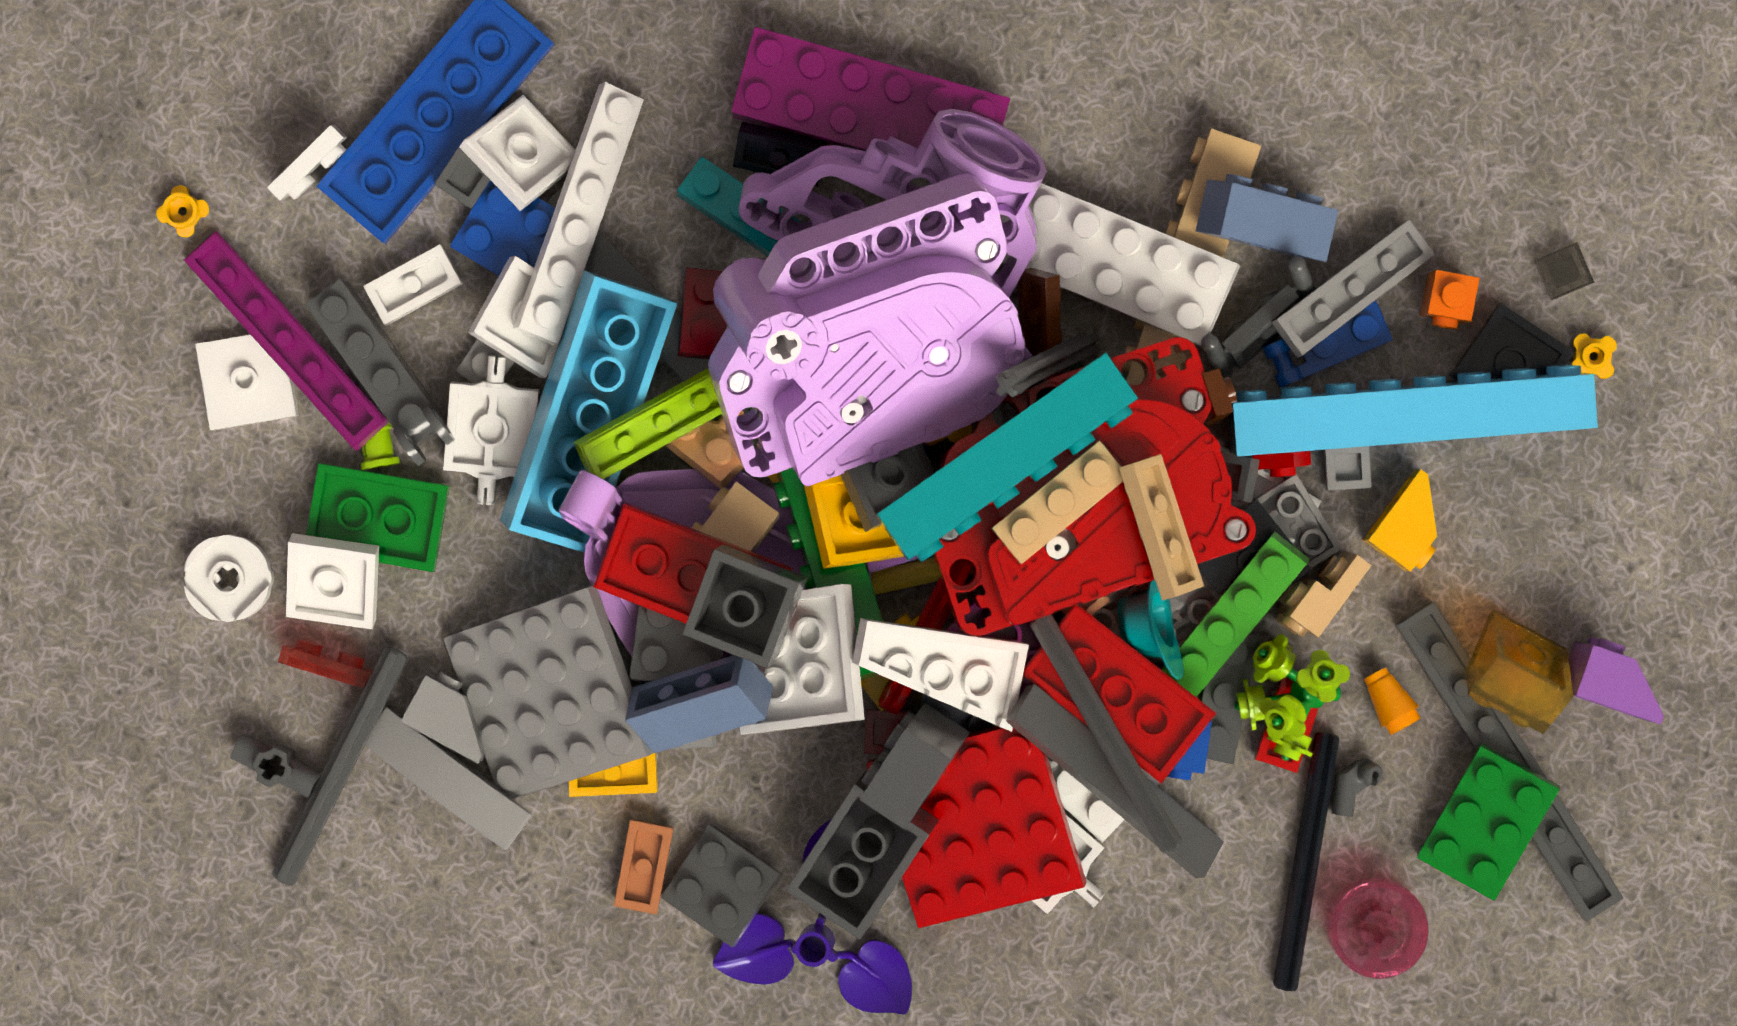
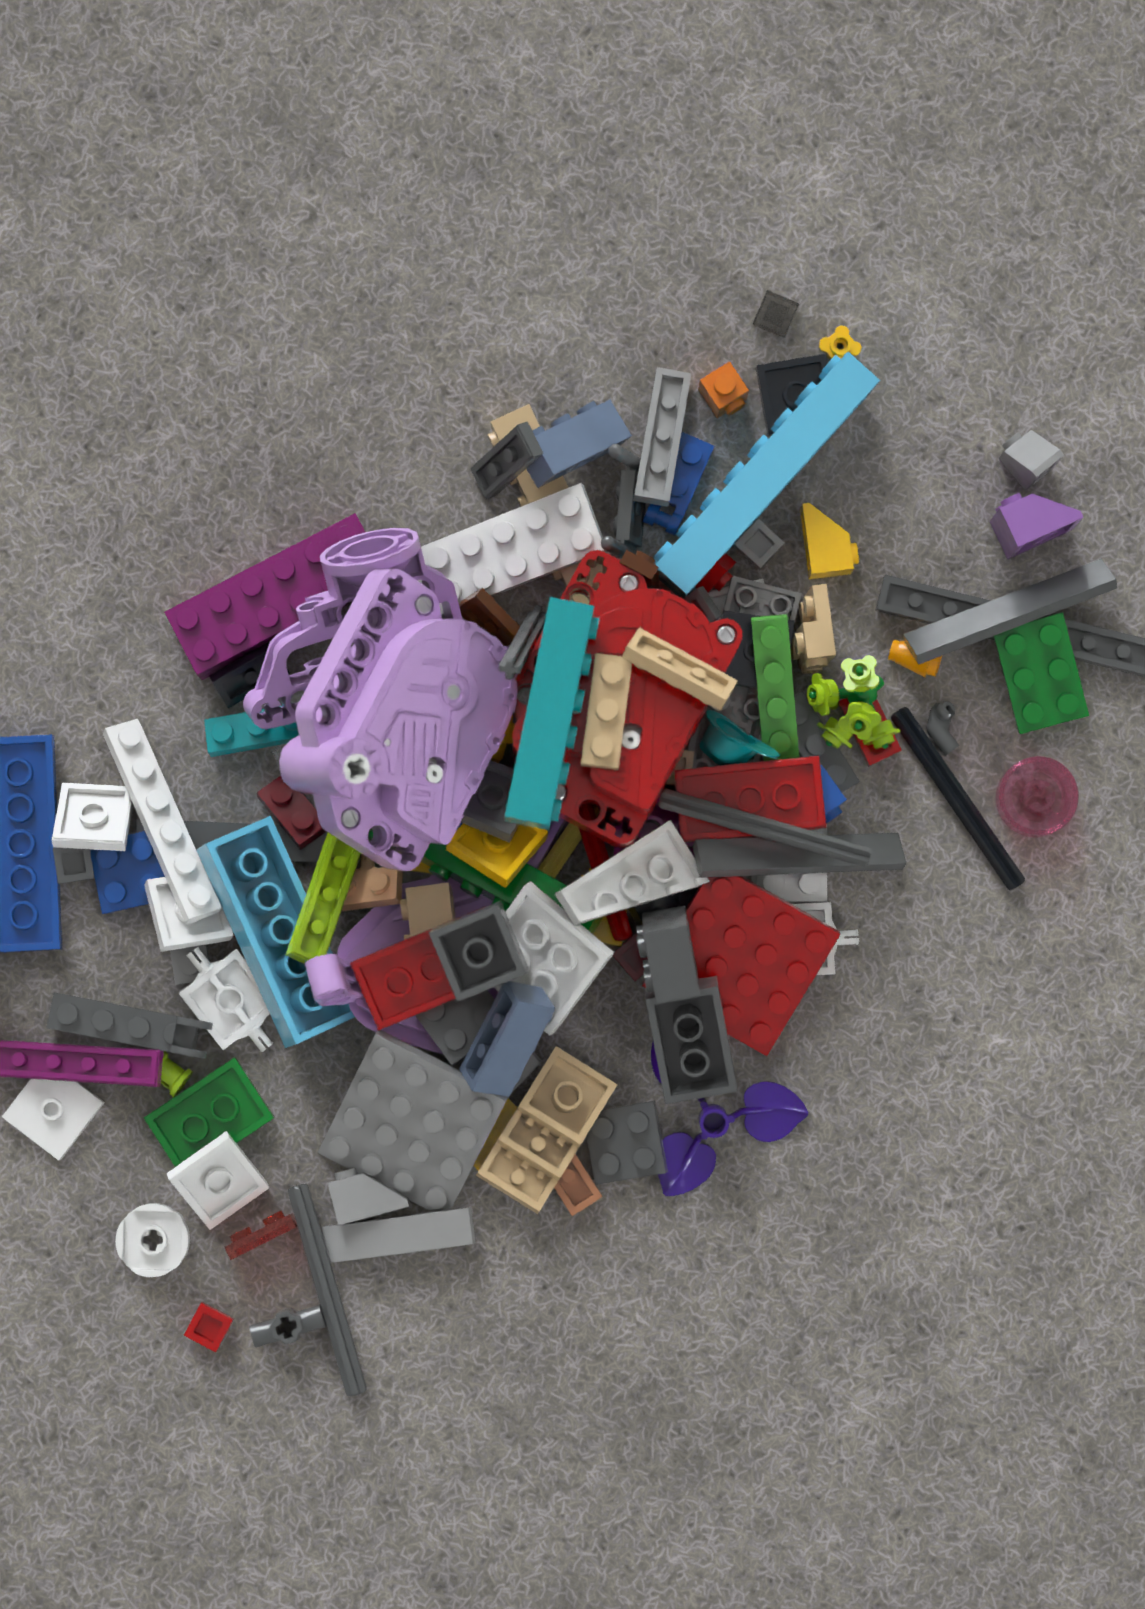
camera: 45 degrees left, 5 degrees down
(206, 700) = (208, 1327): none -> red plate
(413, 285) = (101, 957): white plate -> none
(662, 811) = (546, 1130): none -> tan slope
(1191, 179) = (506, 460): none -> dark grey tile
(1512, 744) = (1010, 611): none -> dark grey tile
(1519, 673) = (974, 568): clear yellow slope -> none
(1666, 620) = (1029, 458): none -> light grey slope

